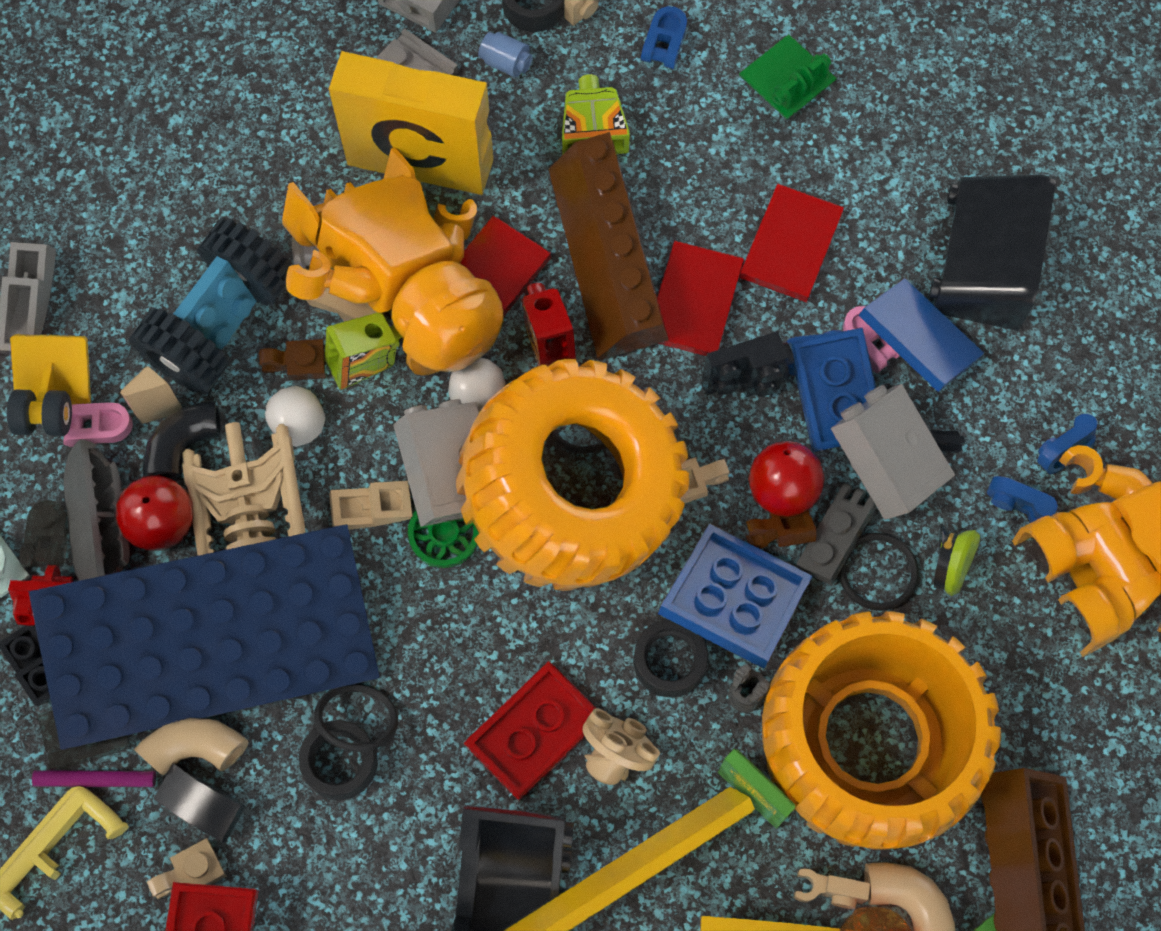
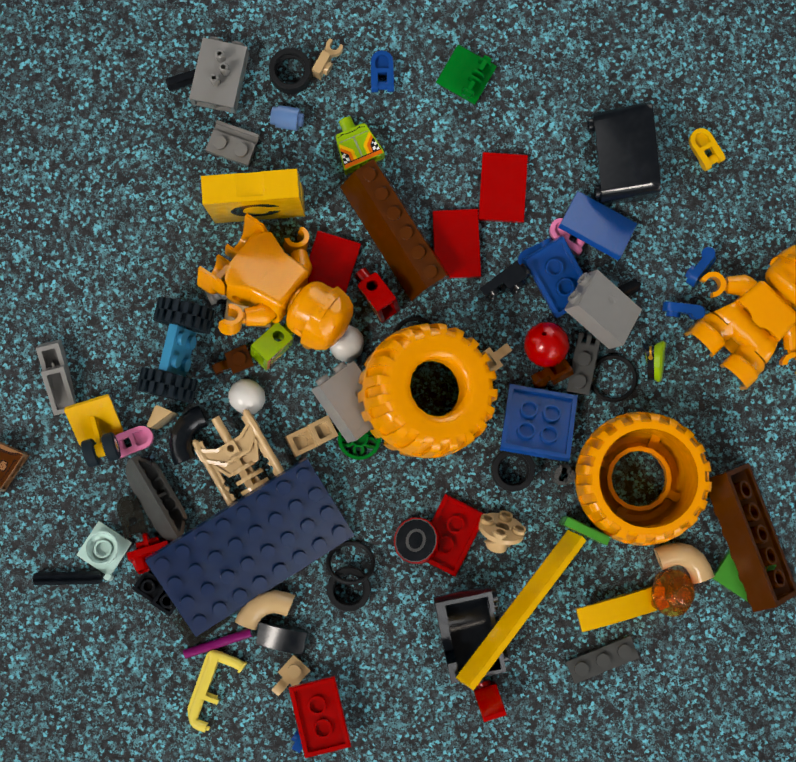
camera: 20 degrees left, 15 degrees up
(154, 513) = (200, 485): red helmet -> none
(476, 718) = (416, 540): none -> black tile
(843, 891) = (647, 568): tan plate -> none
(1118, 267) = (702, 140): none -> yellow plate

